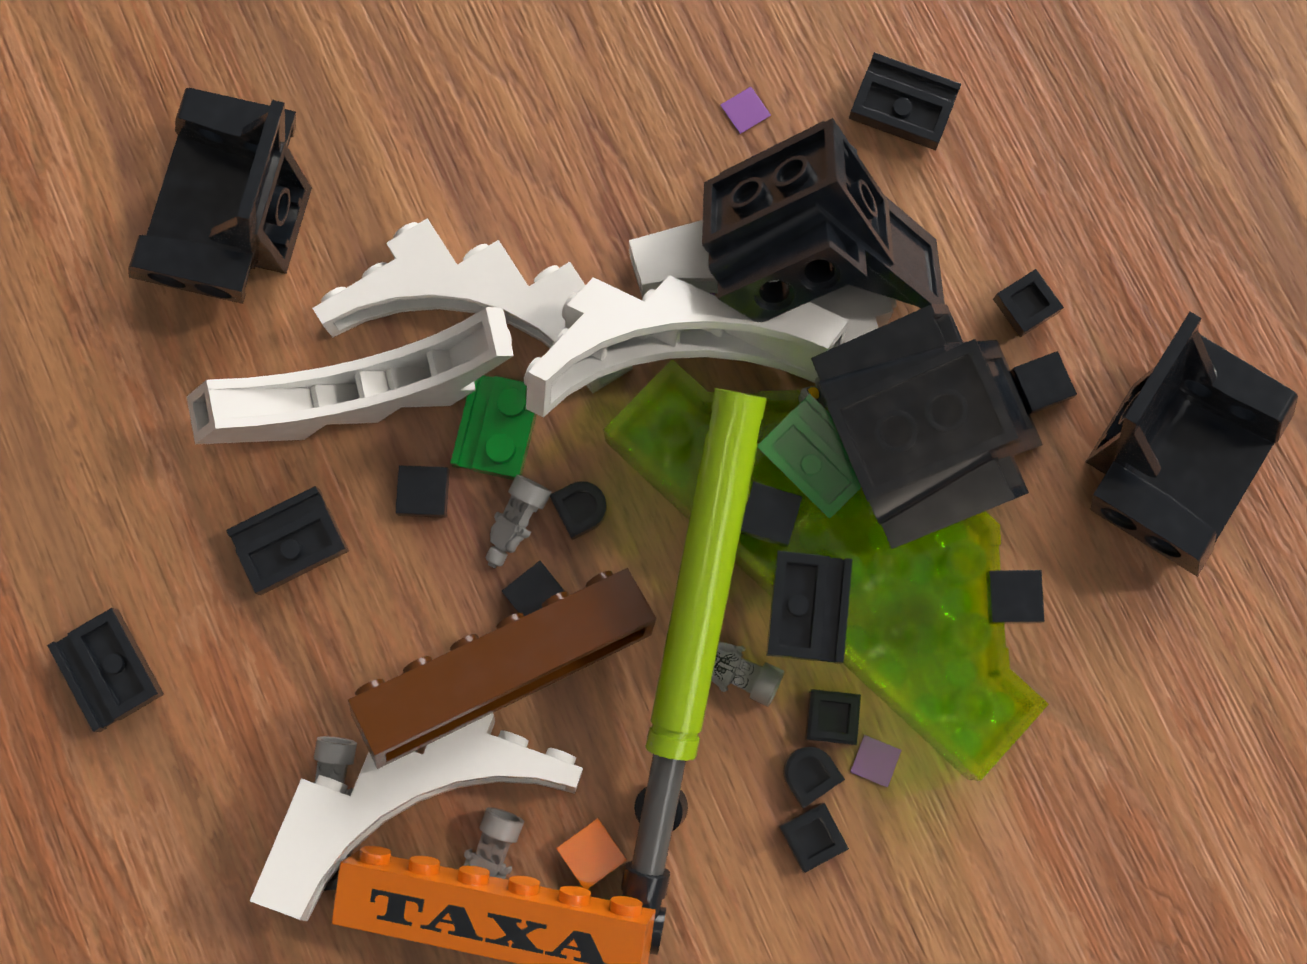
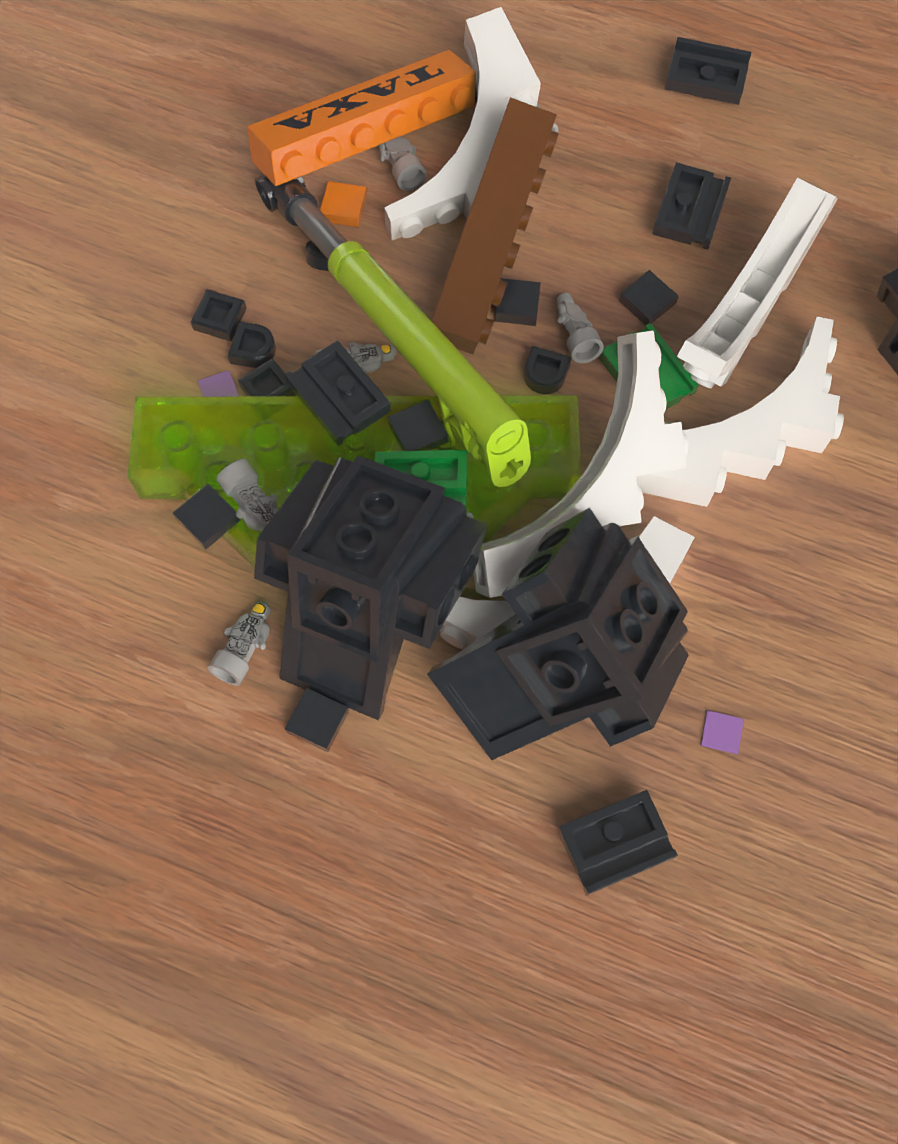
camera: 135 degrees right, 10 degrees down
(967, 560) = (240, 482): none -> light grey piece
(1028, 303) = (379, 765): black plate -> none
(1044, 497) = (246, 634): none -> light grey piece
(1188, 446) = (166, 741): black piece -> none

